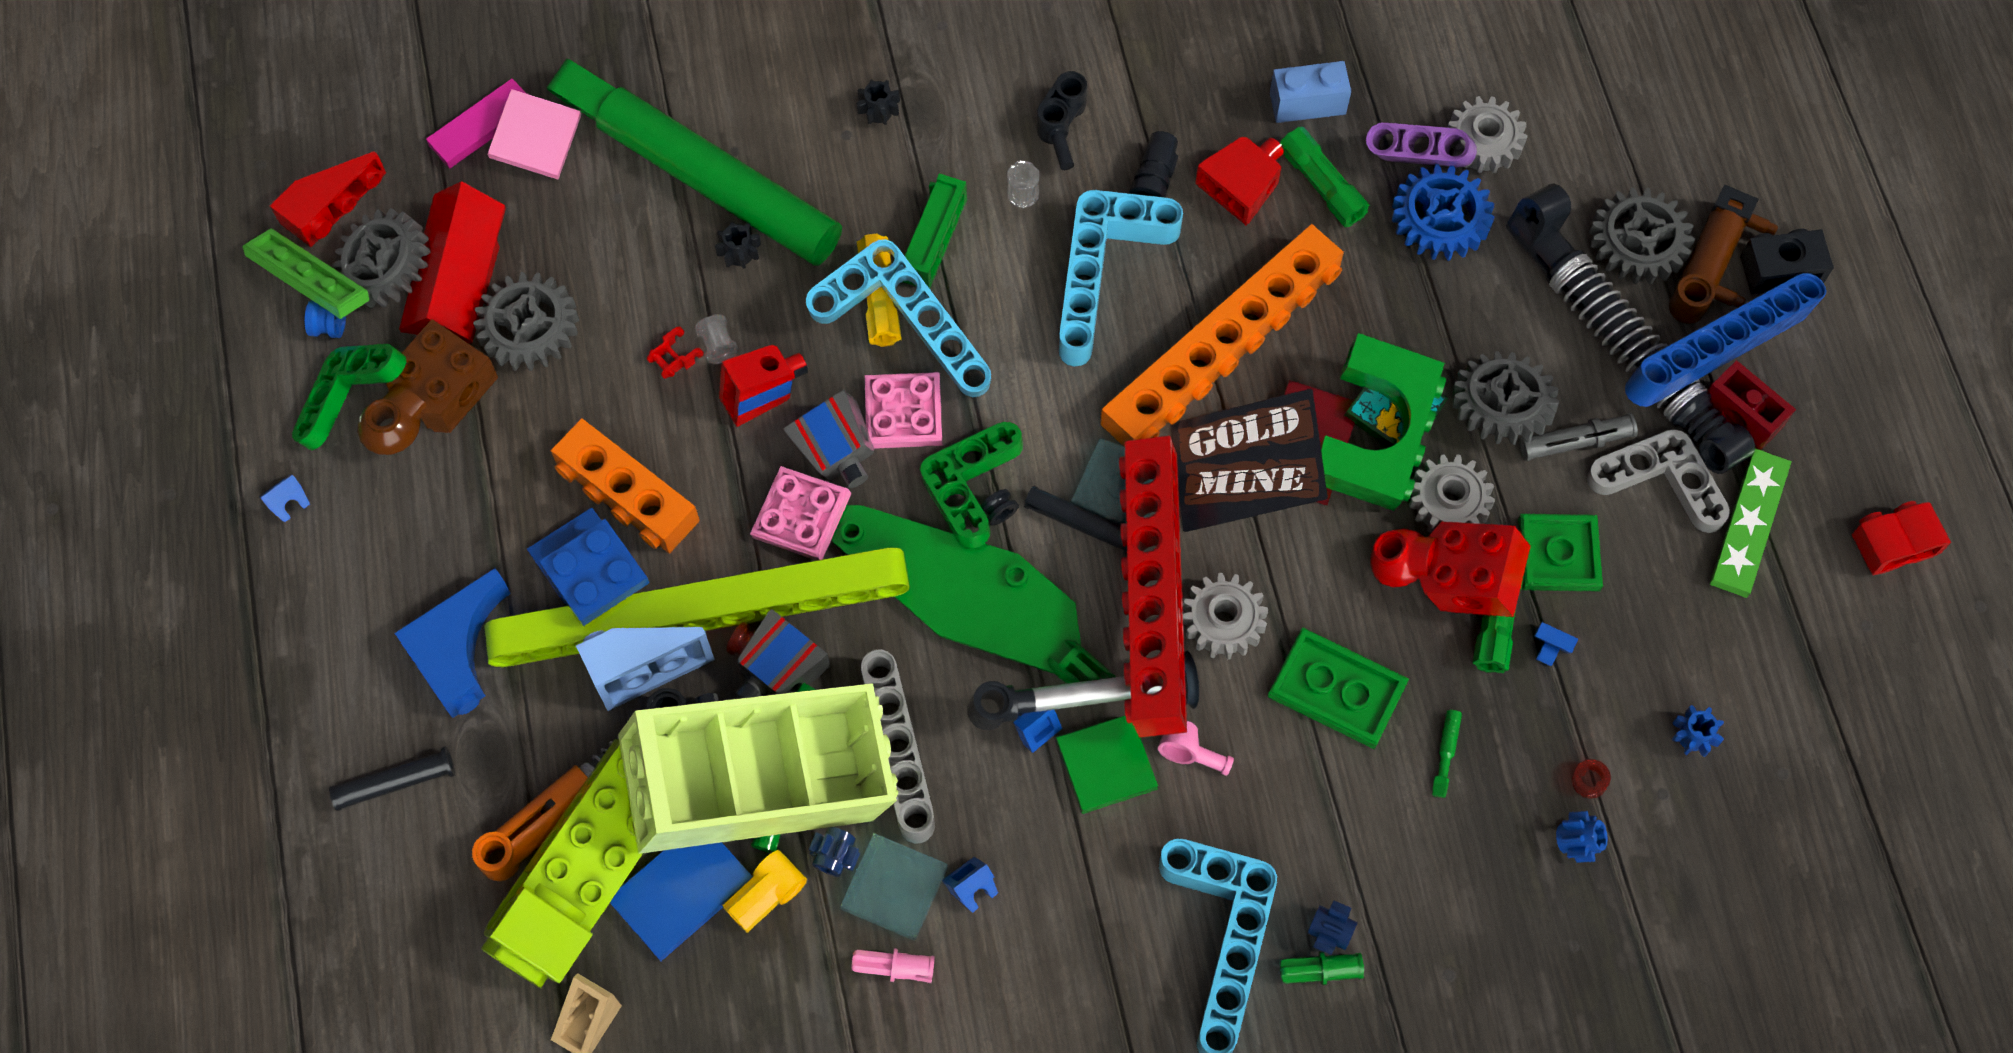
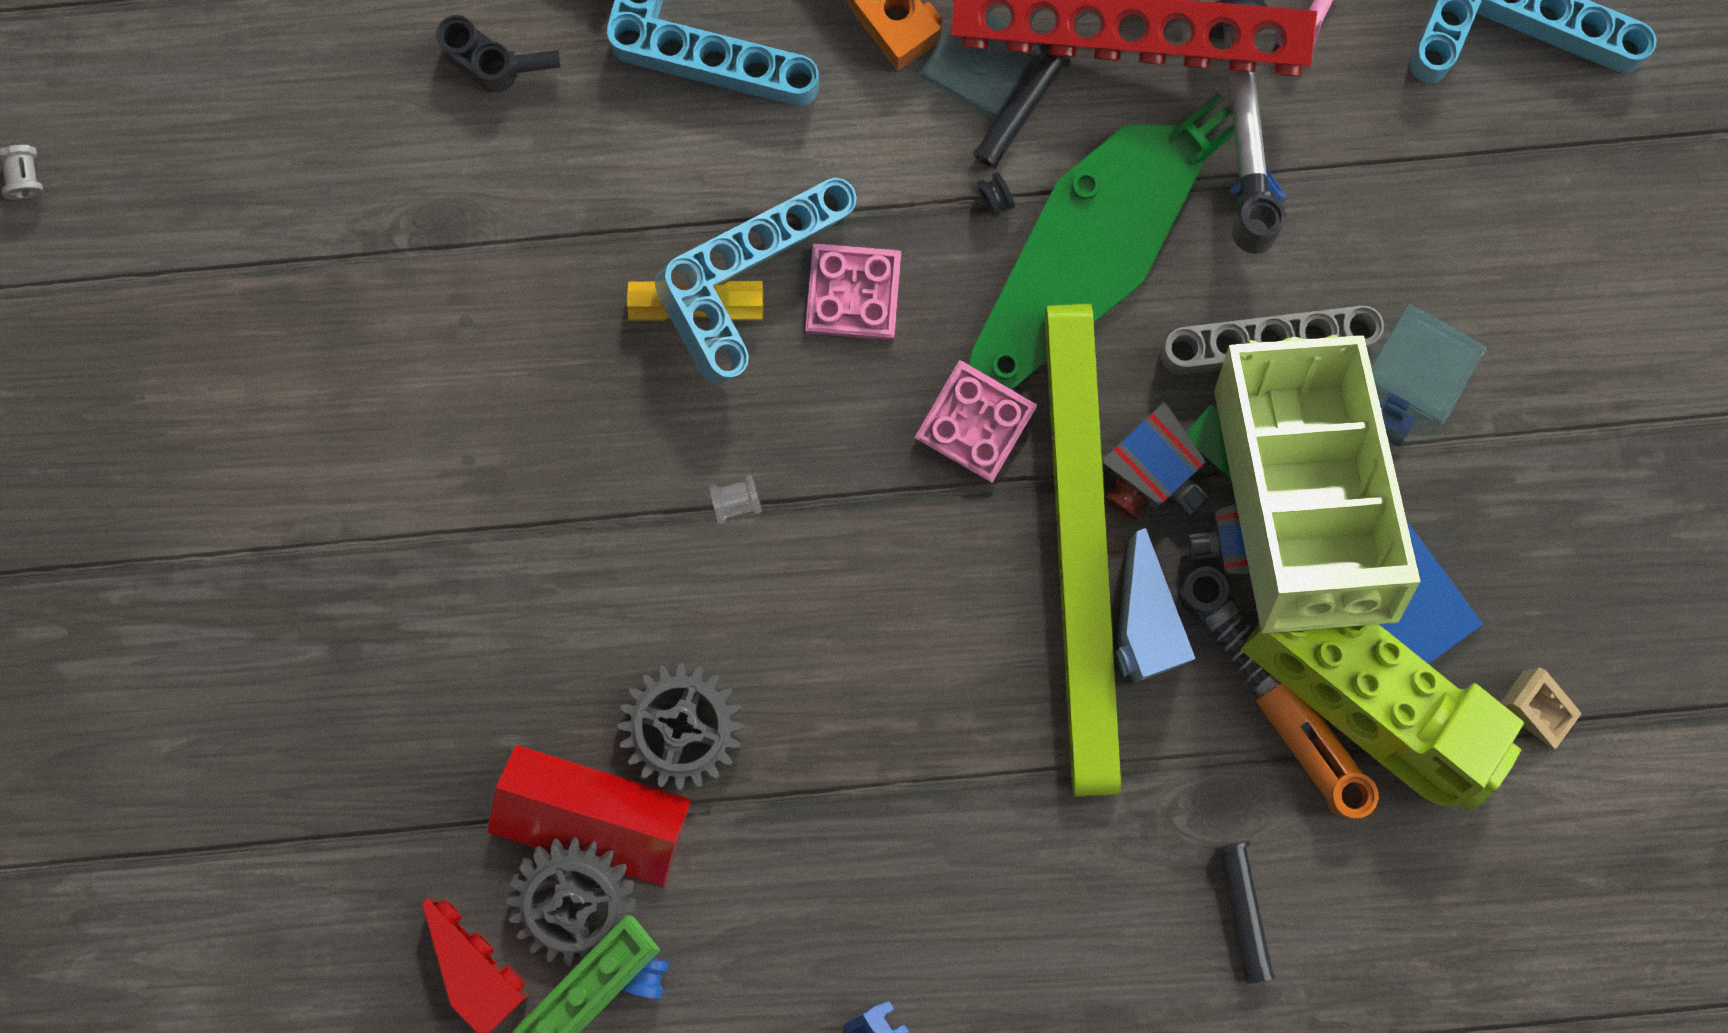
camera: 85 degrees left, 15 degrees up
(339, 372) = (727, 949): green beam -> none
(437, 385) = (761, 851): reddish brown brick -> none
(446, 639) = (1095, 845): blue arch -> none
(472, 127) = (384, 772): dark pink tile -> none
(534, 134) = (419, 701): bright pink tile -> none
(586, 446) = (958, 565): orange brick -> none
(588, 566) = (1019, 668): blue bracket -> none
(679, 362) = (755, 568): red piece -> none
(699, 164) = (488, 504): green piece -> none
(738, 235) = (601, 456): black gear -> none
(758, 382) = (807, 450): red torso -> none
(773, 883) = (1424, 503): yellow piece -> none
(834, 439) = (893, 370): torso -> none
(878, 102) = (435, 262): black gear -> none
(895, 965) = (1515, 372): bright pink axle -> none
(936, 226) = (623, 224): green container -> none
(958, 472) = (944, 236): green beam -> none
(968, 879) = (1432, 280): tile -> none
(1023, 173) = (568, 103): clear bush -> none
(1106, 764) = (1310, 119): green tile -> none

